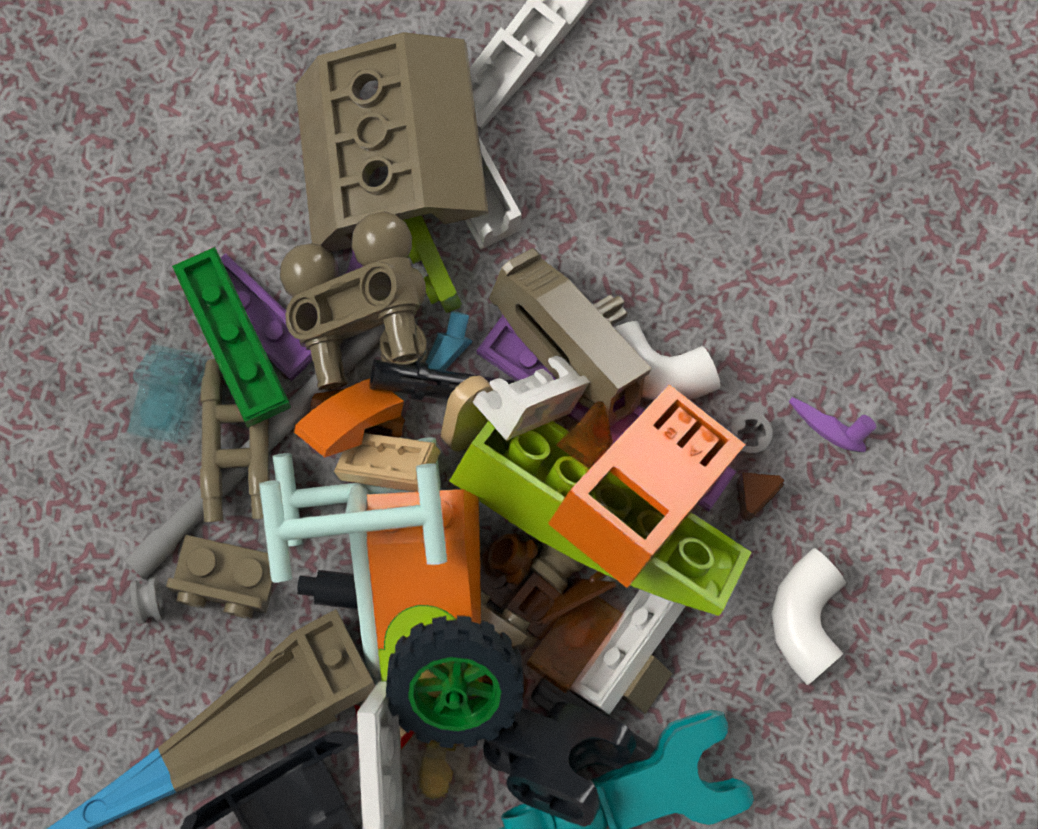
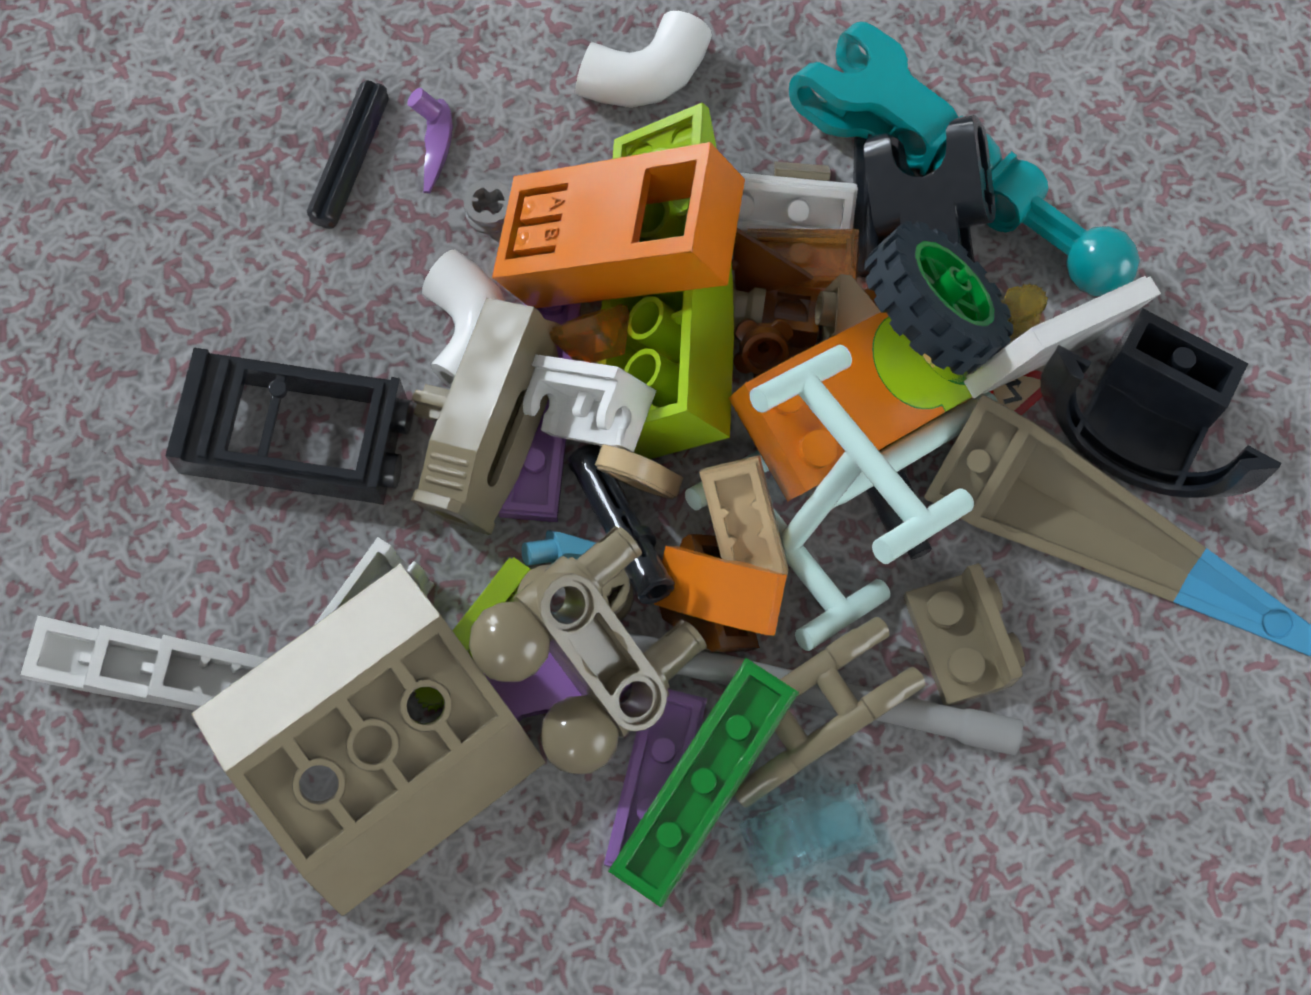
camera: 120 degrees left, 5 degrees down
(146, 600) = (1042, 699): light grey bush -> none
(684, 157) = (210, 409): none -> black door
(756, 491) = (549, 154): reddish brown slope -> none
(852, 357) = (348, 154): none -> black axle

